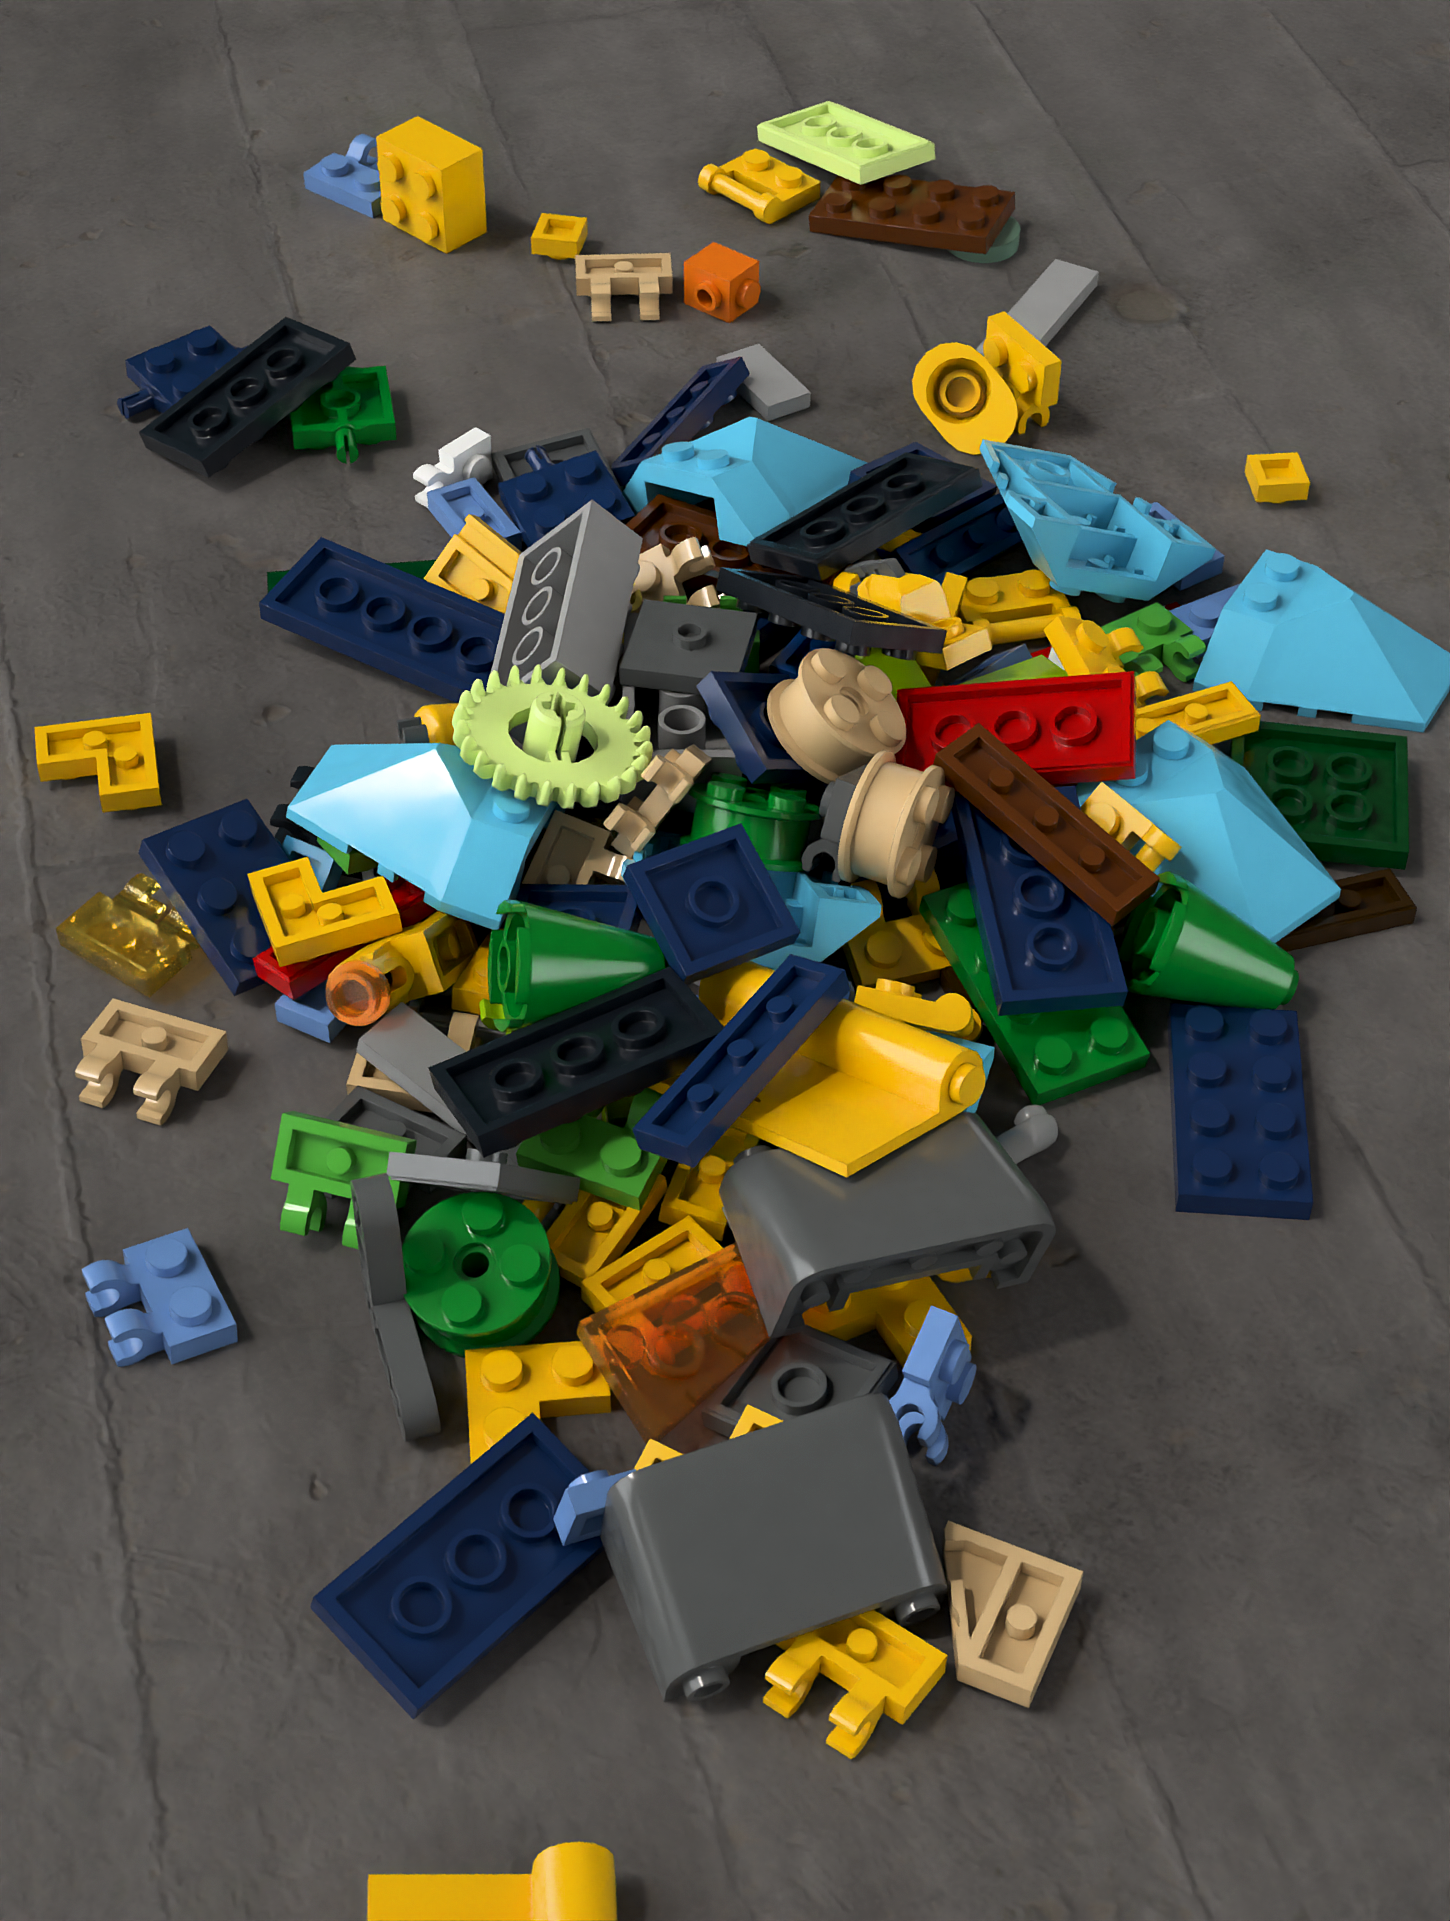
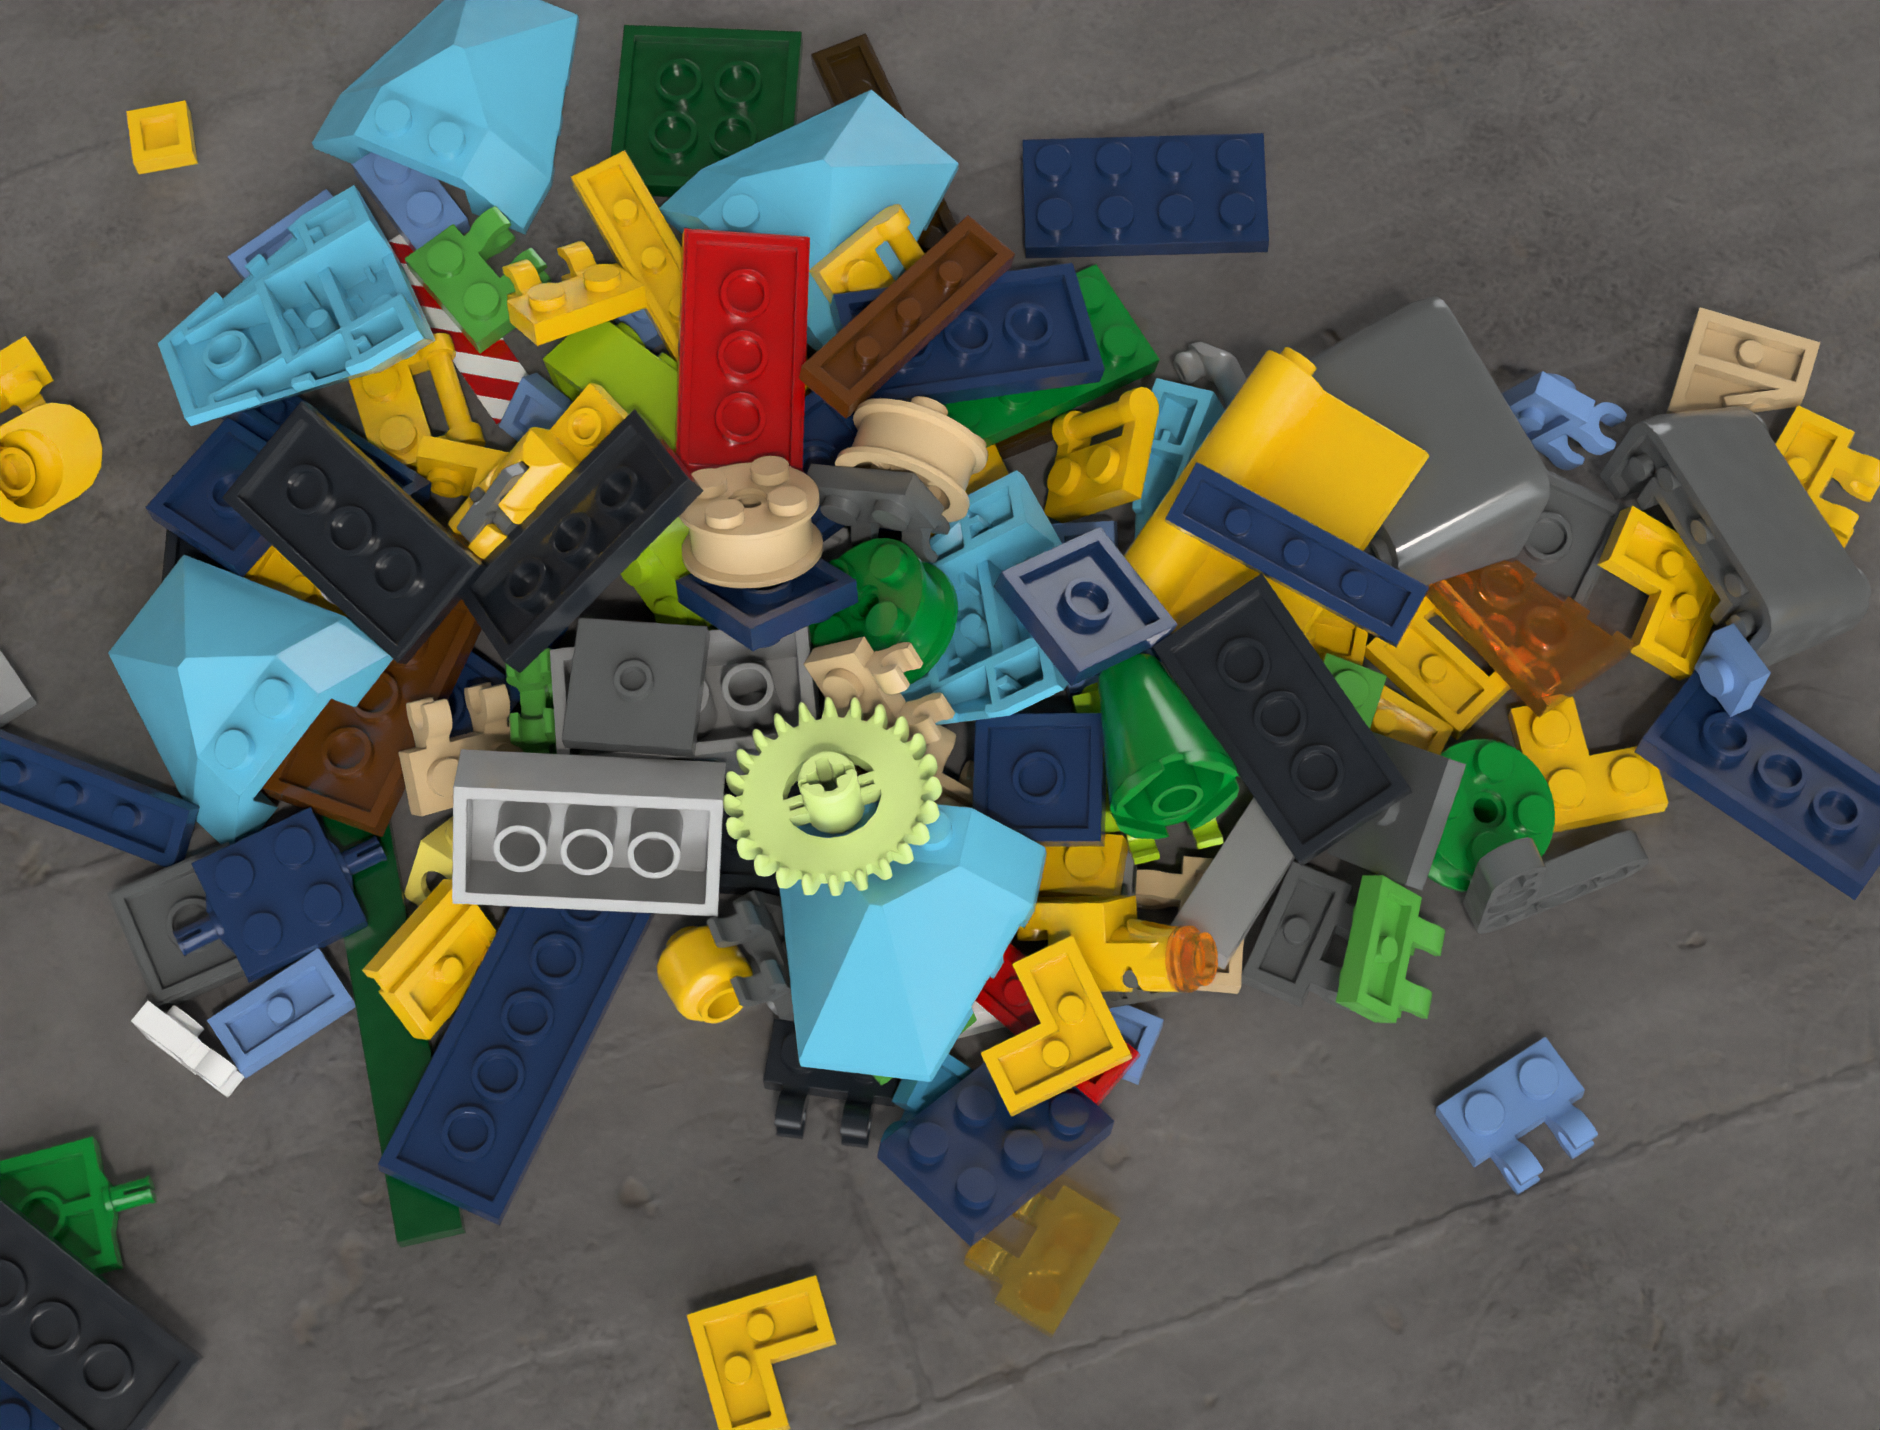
camera: 90 degrees left, 25 degrees up
(151, 1043) = (1201, 1194): tan plate -> none
(1201, 952) = (998, 193): green cone -> none

